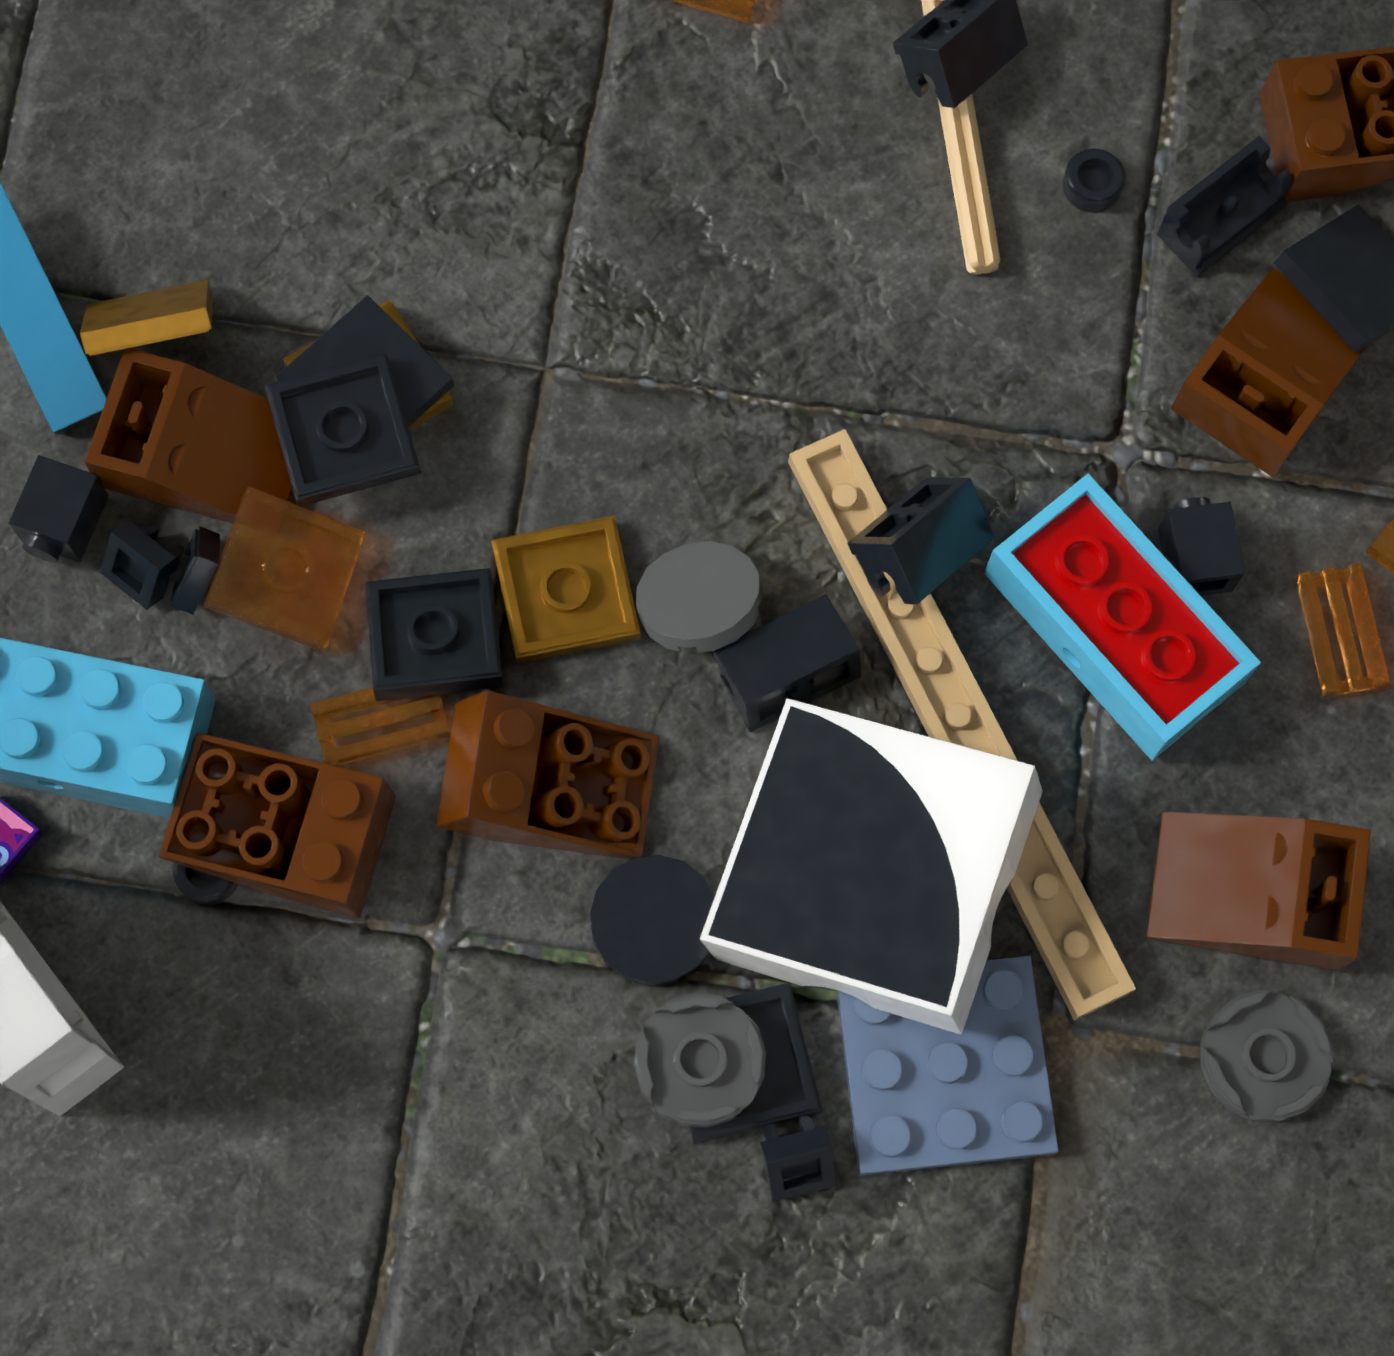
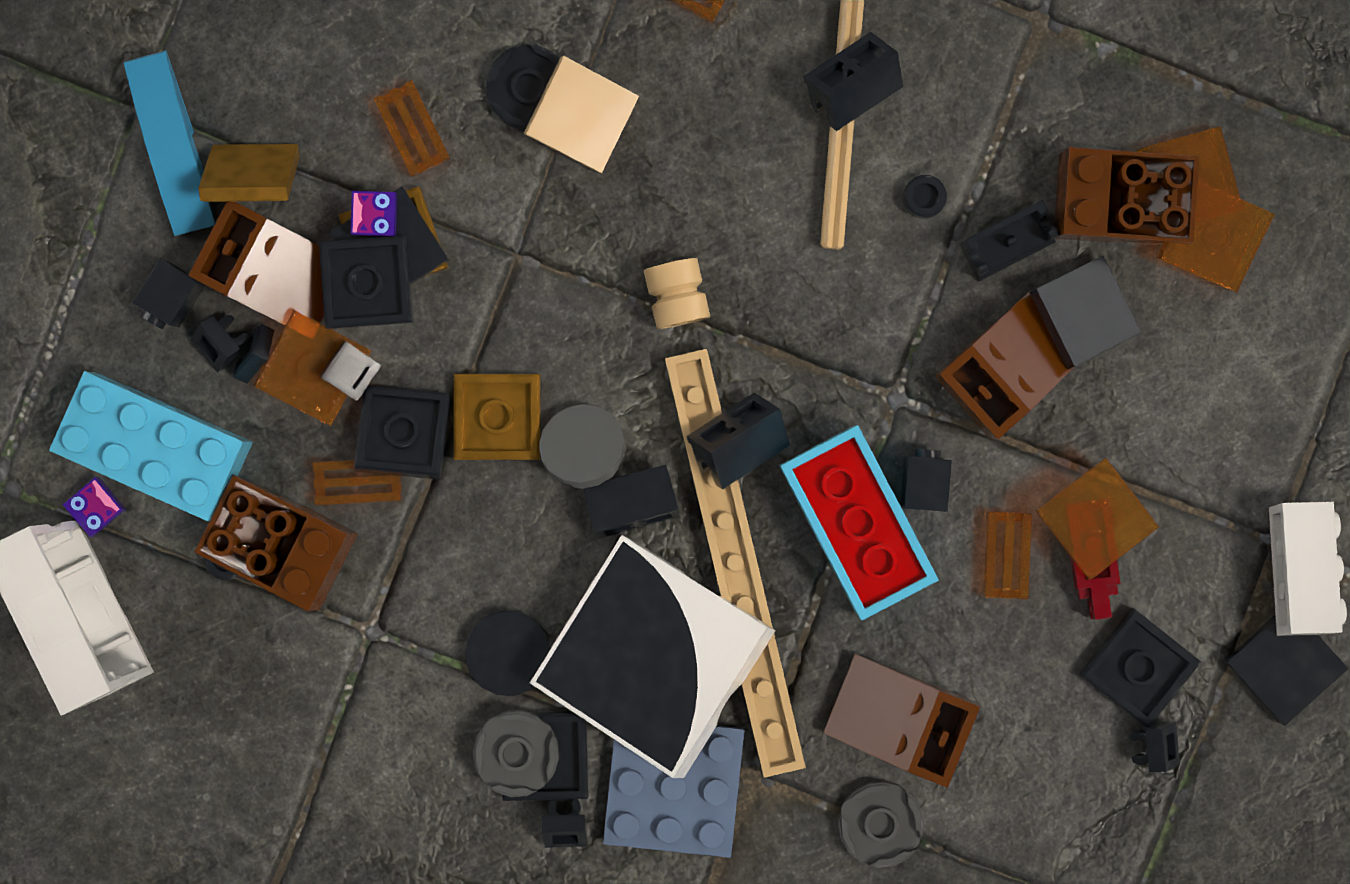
camera: 15 degrees right, 15 degrees up
(334, 333) = (373, 213): none -> tile
(337, 192) = (396, 95): none -> clear orange tile
(341, 559) = (350, 370): none -> tile
(516, 147) = (518, 82): none -> black tile
(546, 778) = (457, 547): reddish brown slope -> none
(597, 161) = (581, 114): none -> tan tile
(782, 356) = (677, 293): none -> tan wheel

